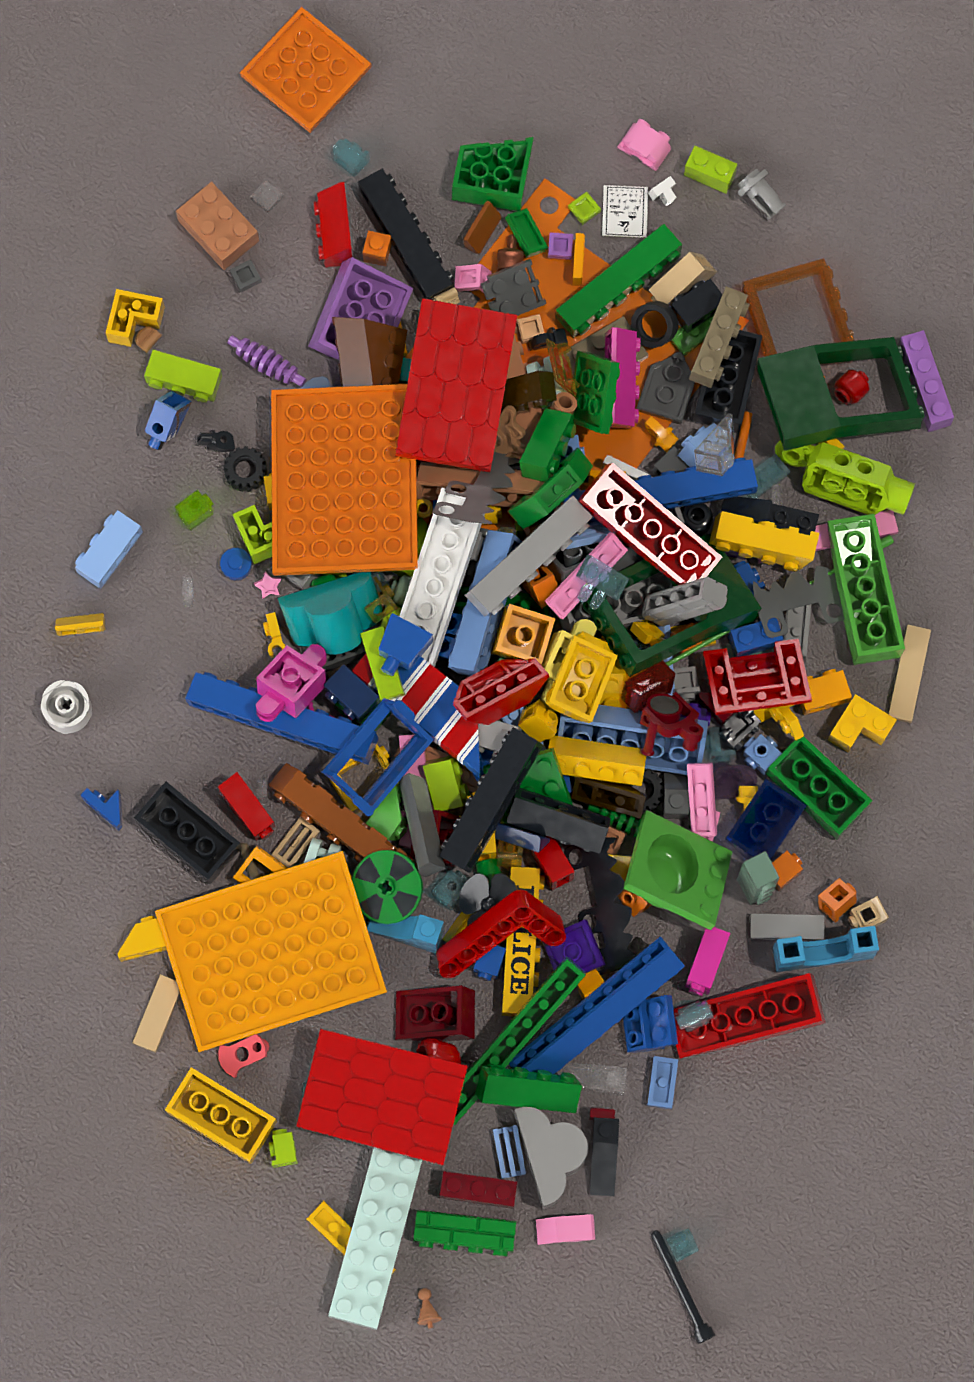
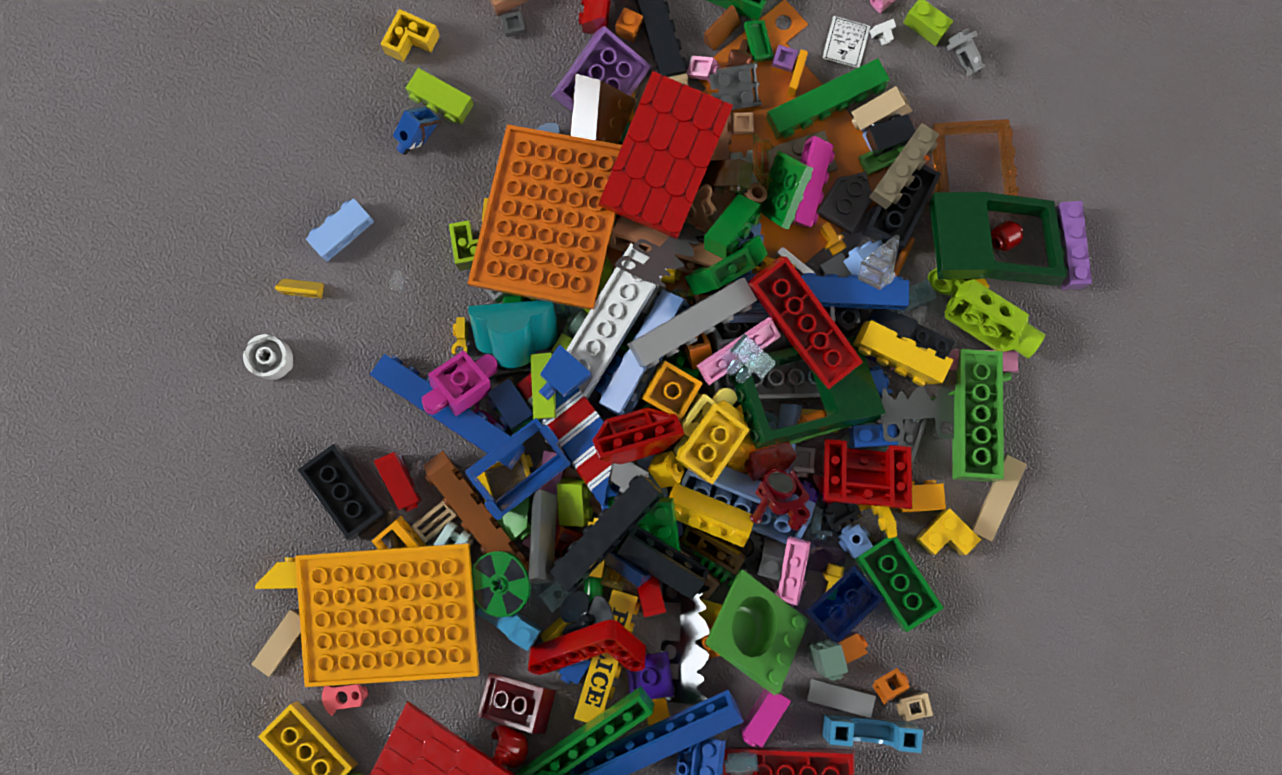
camera: 15 degrees right, 5 degrees up
(110, 810) = (285, 455): blue slope -> none
(147, 338) = (417, 57): medium nougat plate -> none
(194, 509) = (420, 212): clear neon green brick -> none
(213, 441) = (451, 158): black piece -> none
(236, 564) = (443, 267): blue wheel -> none
(245, 455) = (465, 177): black tyre -> none
(266, 361) = (512, 99): medium lavender piece -> none
(268, 585) = (466, 292): bright pink piece -> none
(385, 599) = (560, 329): clear yellow bracket -> none
(425, 502) = (610, 253): yellow pin -> none
(555, 335) = (747, 135): black piece -> none
(584, 208) = (812, 31): lime tile -> none
(647, 632) = (781, 412): yellow plate -> none
(669, 315) = (864, 137): black tyre -> none
(685, 601) = (821, 394): light grey brick -> none

